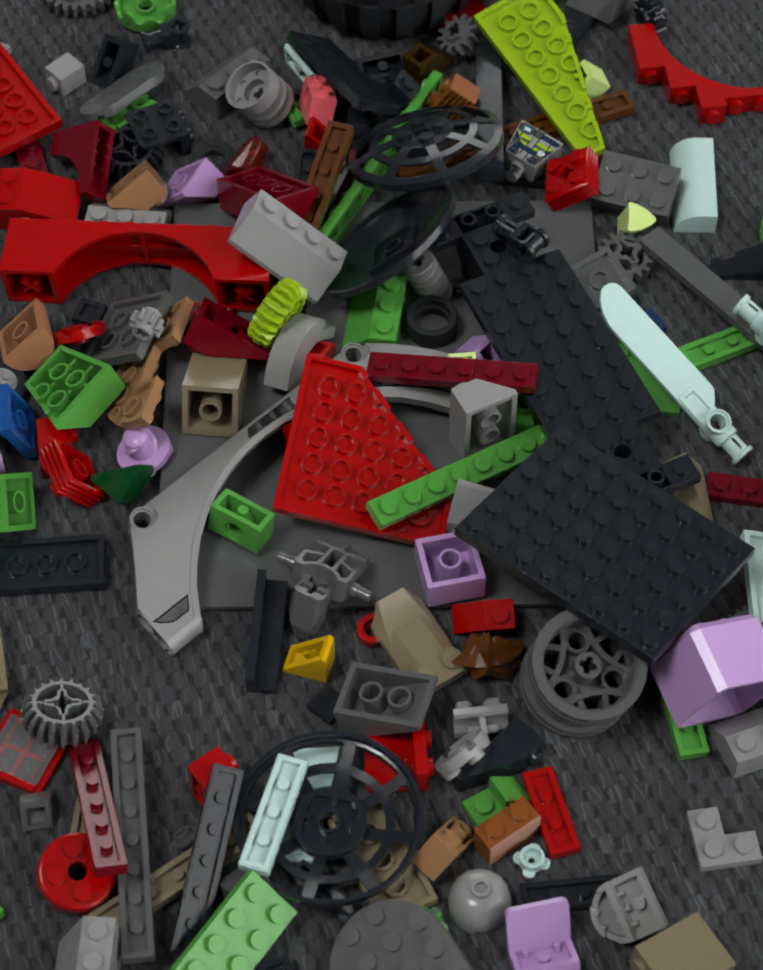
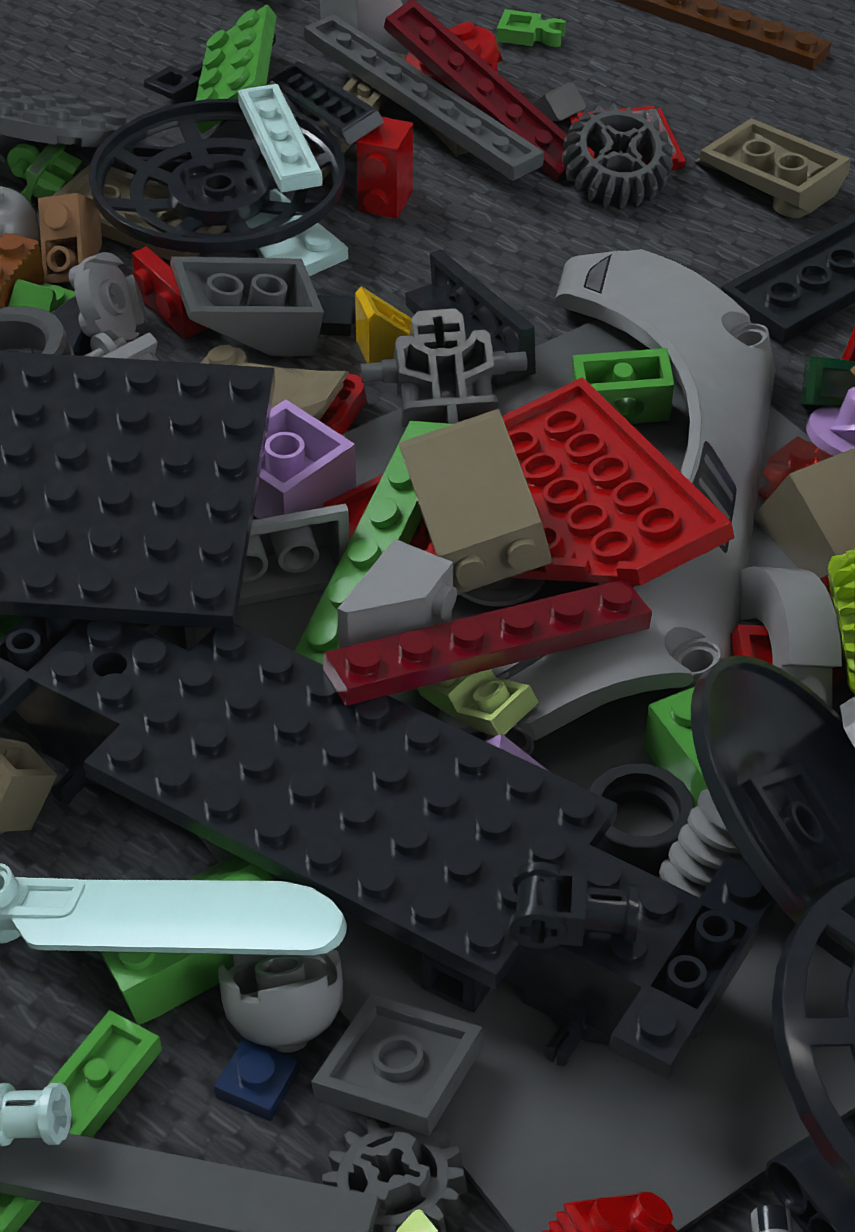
camera: 145 degrees right, 10 degrees down
(191, 446) = (788, 459): none -> clear red plate
(403, 438) = (476, 501): none -> dark tan slope

